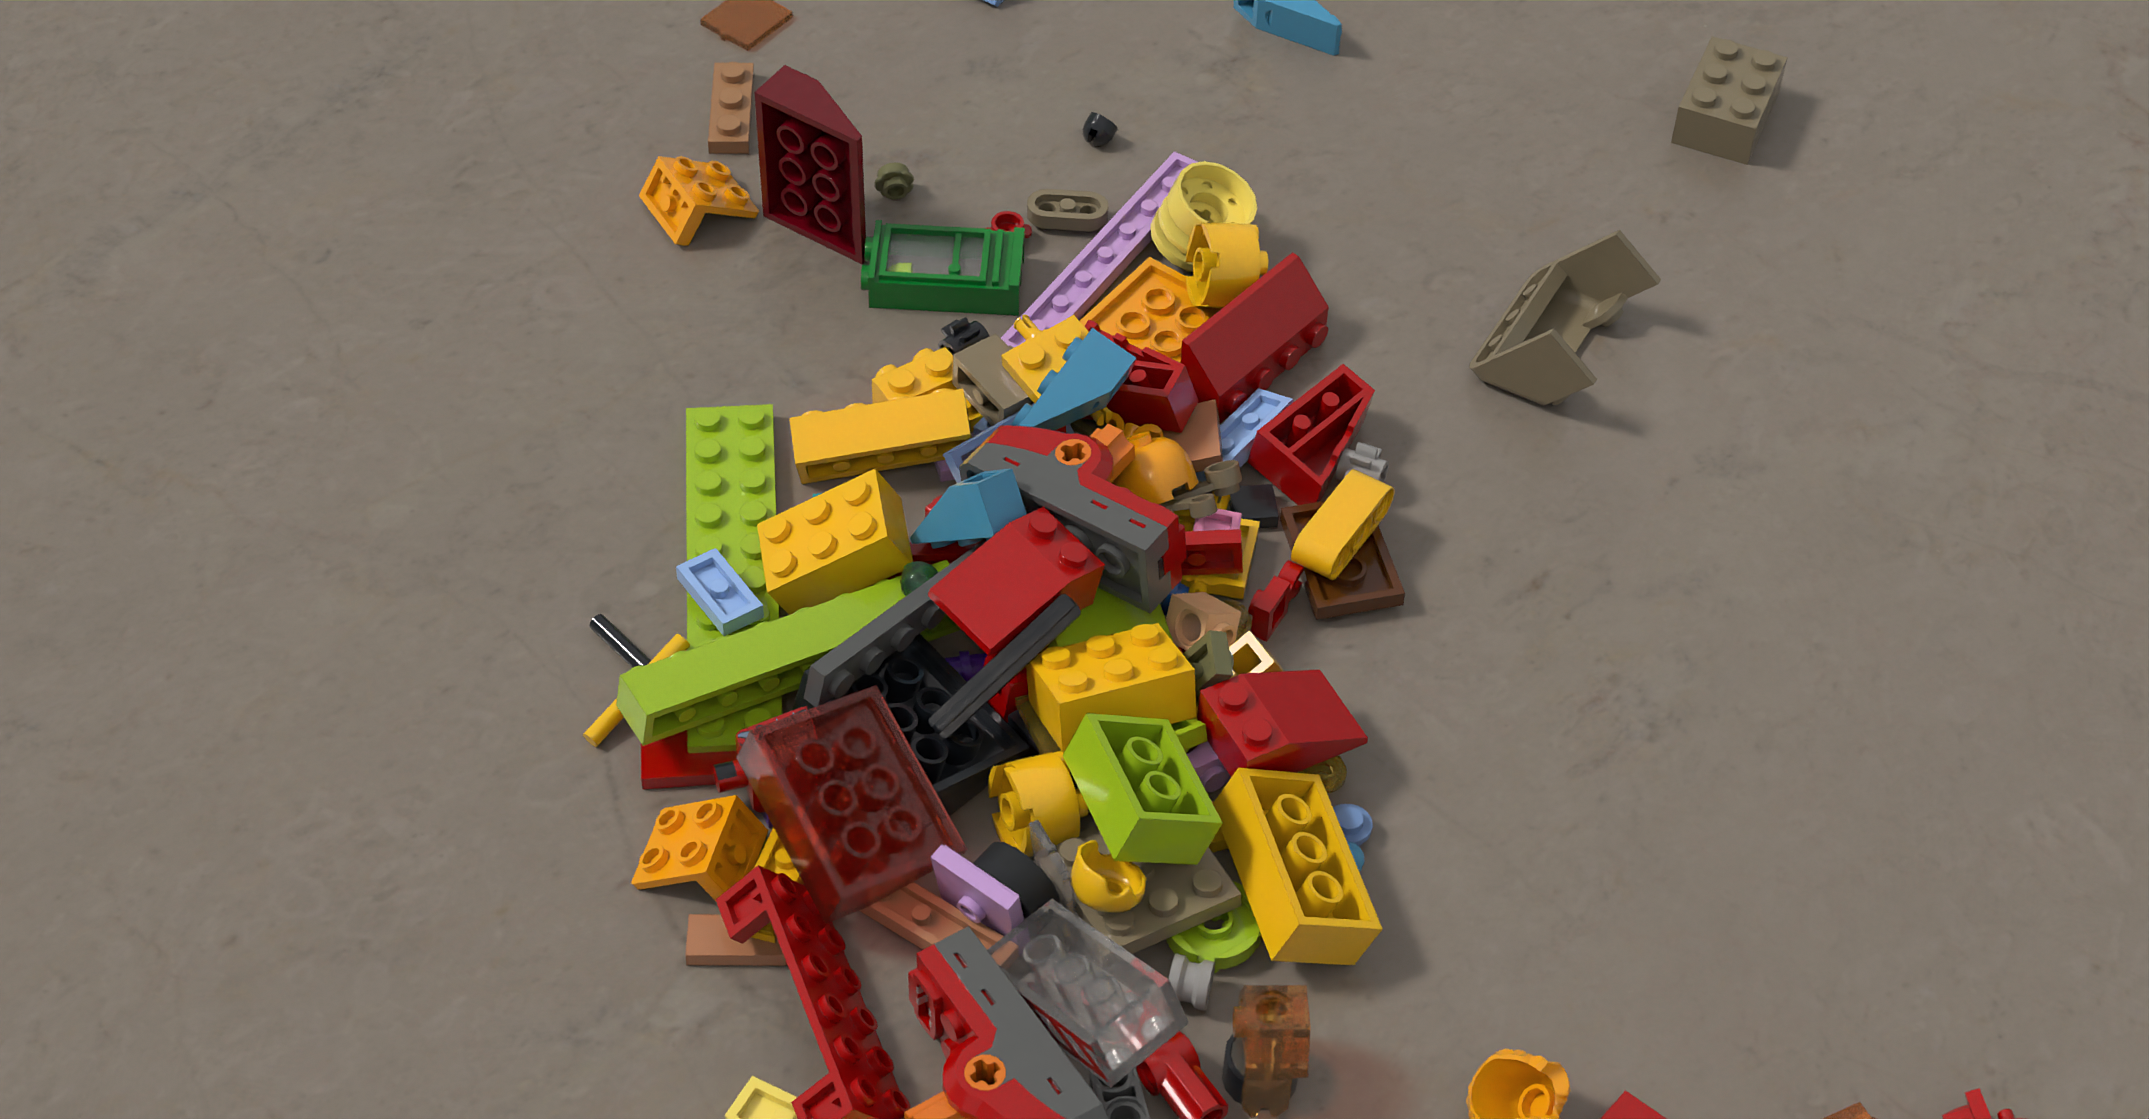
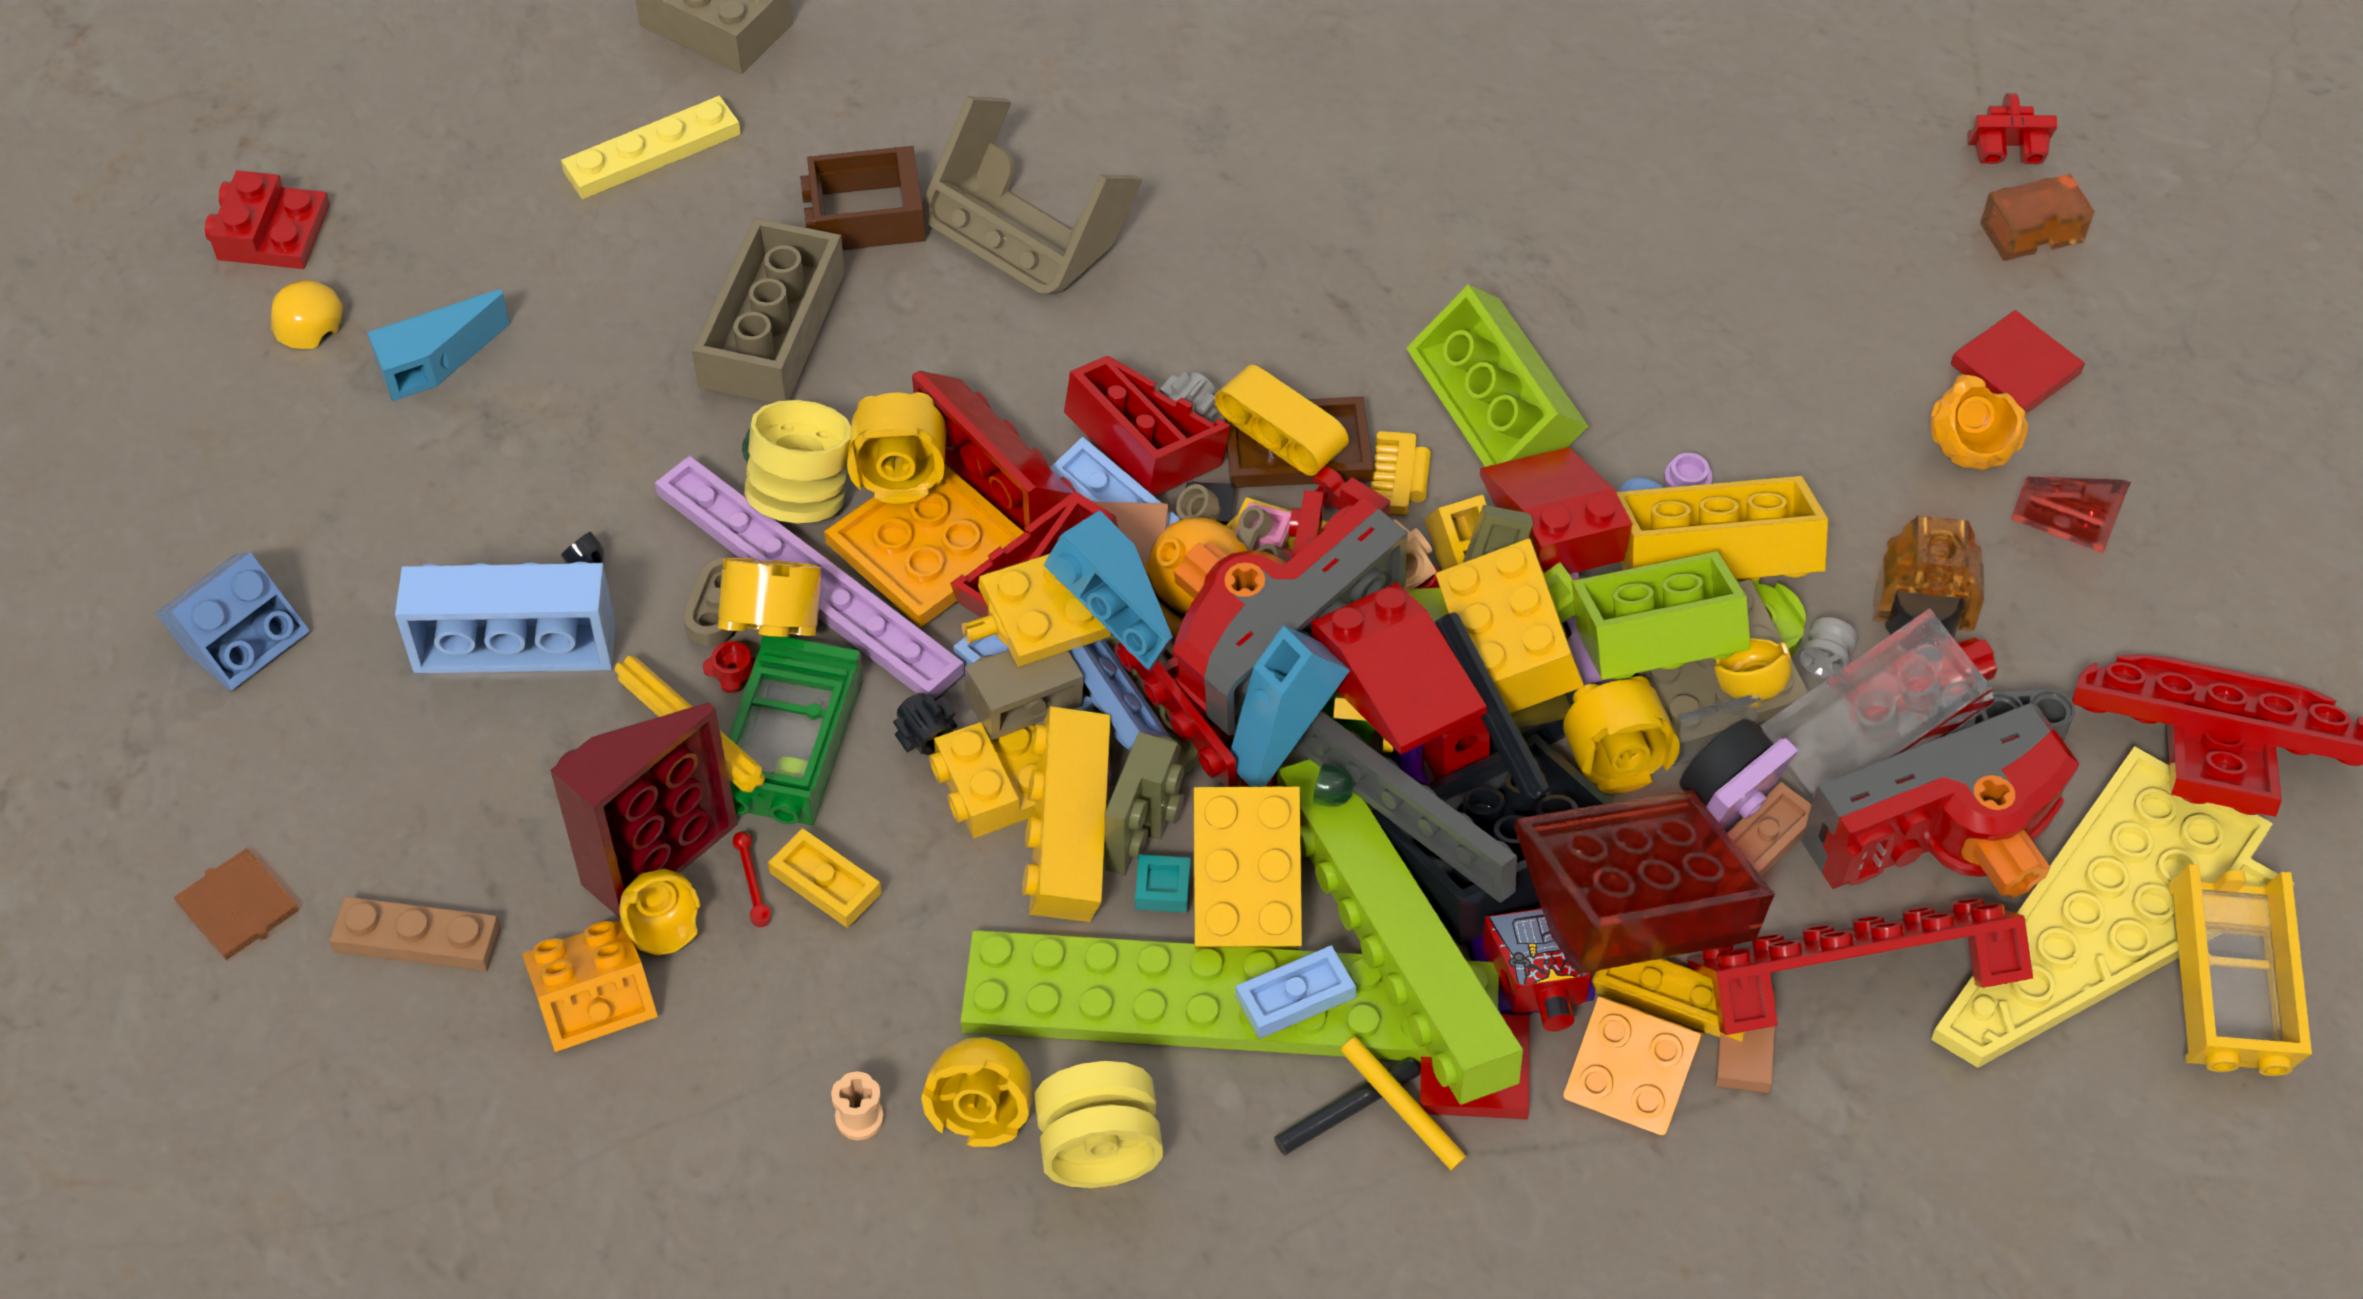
camera: 80 degrees left, 5 degrees up
(588, 482) = (1098, 1124): none -> light yellow wheel
(594, 358) = (858, 1122): none -> light nougat bush
(620, 418) = (979, 1091): none -> yellow cylinder
(755, 219) = (659, 912): none -> yellow hair
(777, 287) = (760, 913): none -> red hinge
(809, 312) = (825, 878): none -> yellow plate
(906, 462) = (1143, 800): none -> olive plate
(927, 201) = (664, 700): none -> yellow axle
(1009, 86) = (506, 617): none -> light blue brick
(1057, 221) = (769, 597): none -> yellow brick
(1334, 646) = (1400, 470): none -> yellow piece
(1375, 184) = (769, 311): none -> dark tan brick
(1388, 862) = (1687, 470): none -> lavender plate
(1458, 697) = (1494, 381): none -> lime slope
(1534, 198) = (866, 172): none -> reddish brown window
(1556, 98) = (650, 147): none -> light yellow plate

